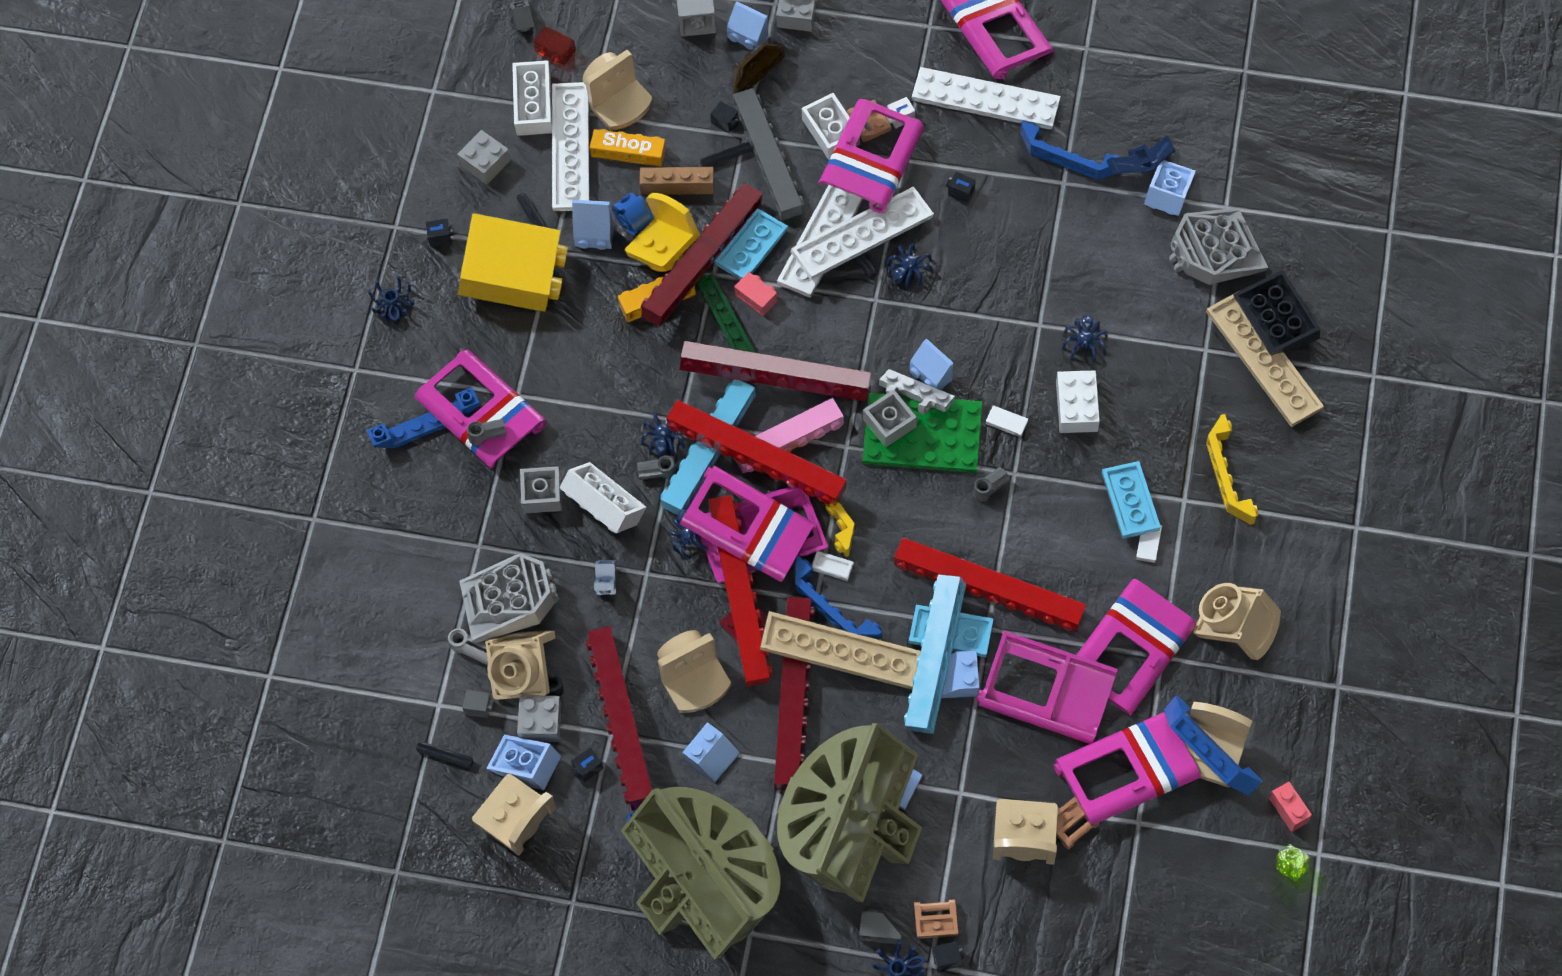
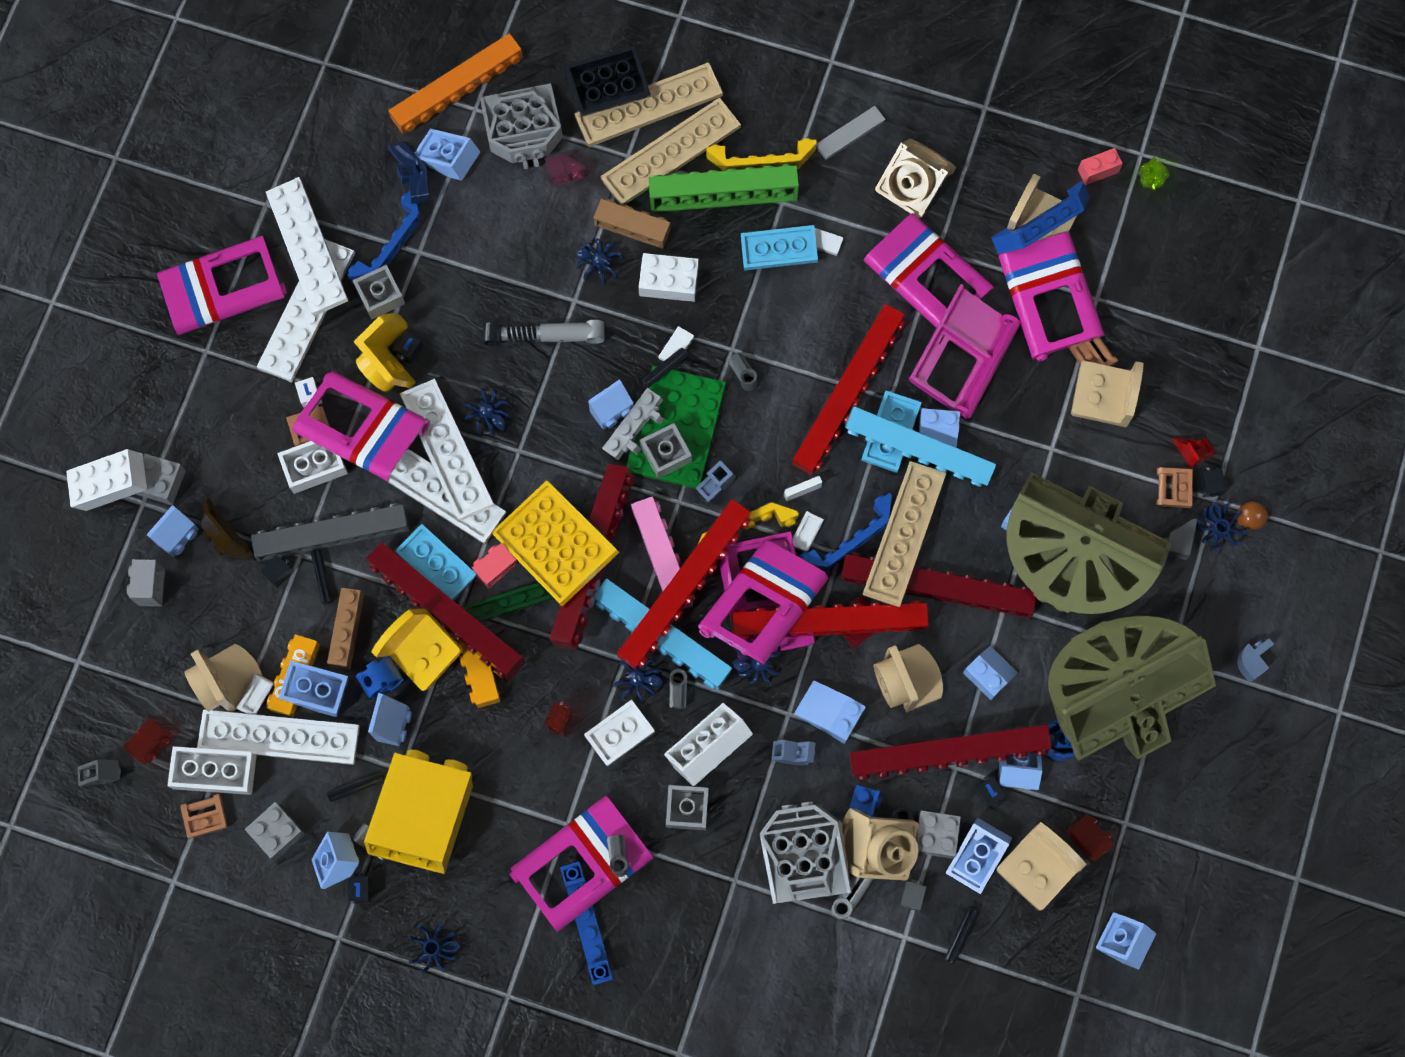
camera: 85 degrees left, 10 degrees up
(451, 910) = (1126, 940): none -> light blue slope
(462, 206) = (334, 859): none -> light blue slope
(487, 103) = (205, 822): none -> nougat plate
(552, 865) = (1090, 837): none -> clear red brick
(563, 650) = (865, 800): none -> blue bracket
(606, 119) = (255, 694): none -> white tile
(607, 424) = (619, 733): none -> white plate
(608, 791) = (1021, 773): none -> light blue slope
(612, 367) = (559, 719): none -> clear red brick
(615, 162) = (314, 688): none -> light blue slope
(650, 609) = (830, 711): none -> light blue slope
(781, 335) = (555, 543): none -> yellow plate
(870, 472) = (718, 479): none -> sand blue brick
(875, 554) = (803, 488): none -> white tile
(941, 157) = (376, 360): none -> yellow piece
(979, 409) = (664, 367): none -> black axle
(982, 936) = (1194, 450): none -> red slope
(1006, 337) = (591, 332): none -> piece
(1011, 151) = (378, 292): none -> light grey brick
(1047, 84) = (306, 246): none -> white plate
(1129, 361) = (632, 223): none -> medium nougat brick
(1174, 289) = (563, 169): none -> clear pink slope
(1182, 436) = (723, 188): none -> bright green brick
(1217, 386) = (671, 151): none -> tan plate
(1247, 183) = (456, 83): none -> orange brick
(1276, 554) = (850, 133): none -> light grey tile

